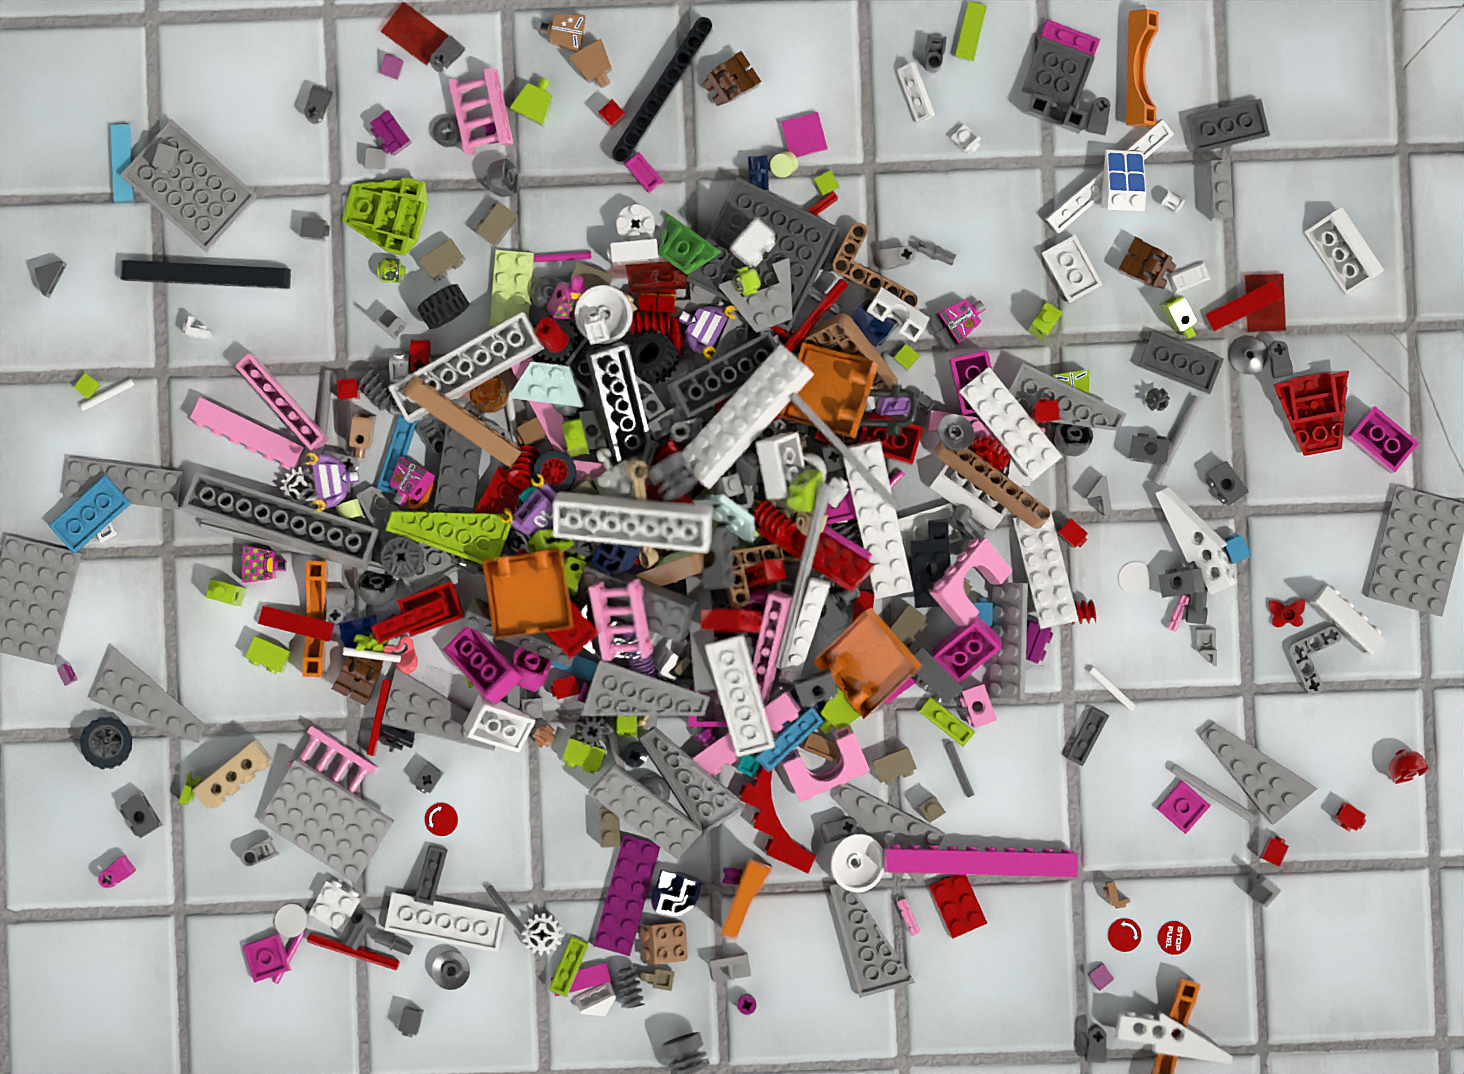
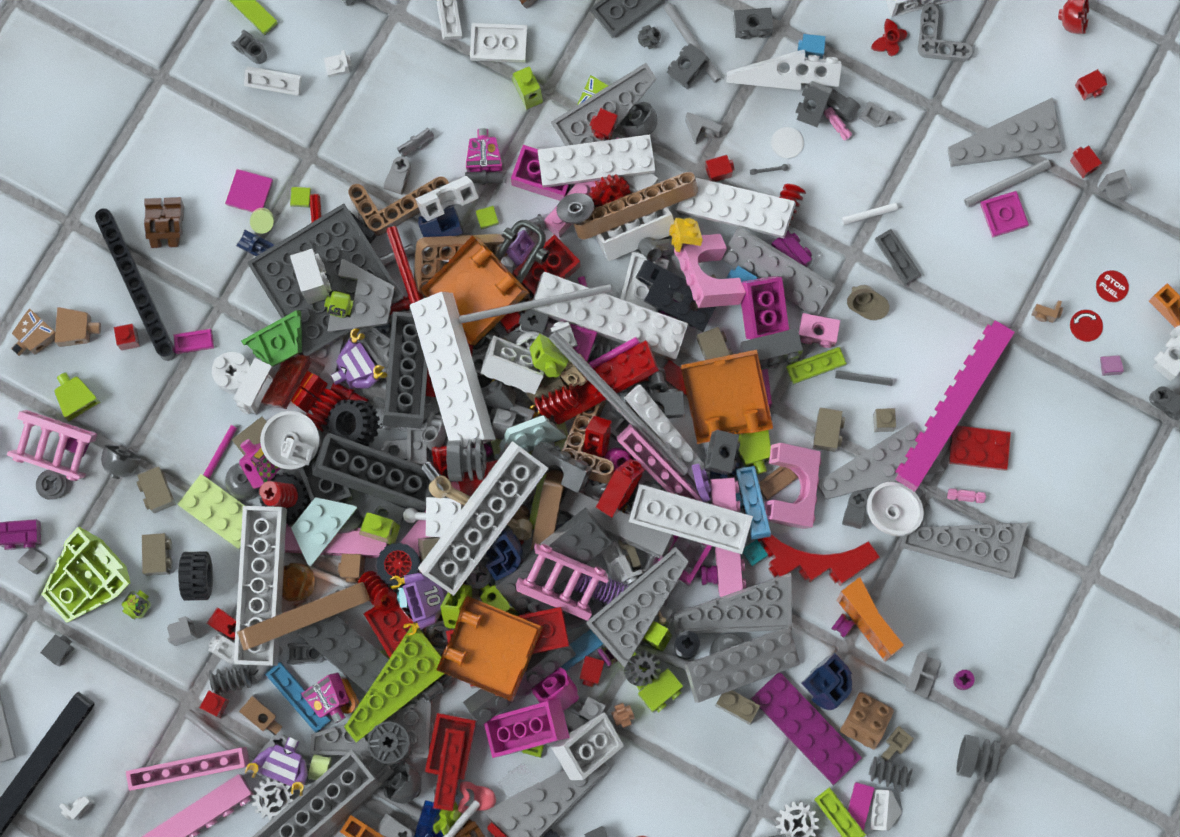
camera: 55 degrees left, 10 degrees down
(779, 686) = (702, 484): none -> medium lavender wing
(991, 541) = (685, 232): none -> yellow bracket
(1028, 733) = (868, 303): none -> dark tan piece
(1110, 589) = (784, 167): none -> dark grey hinge

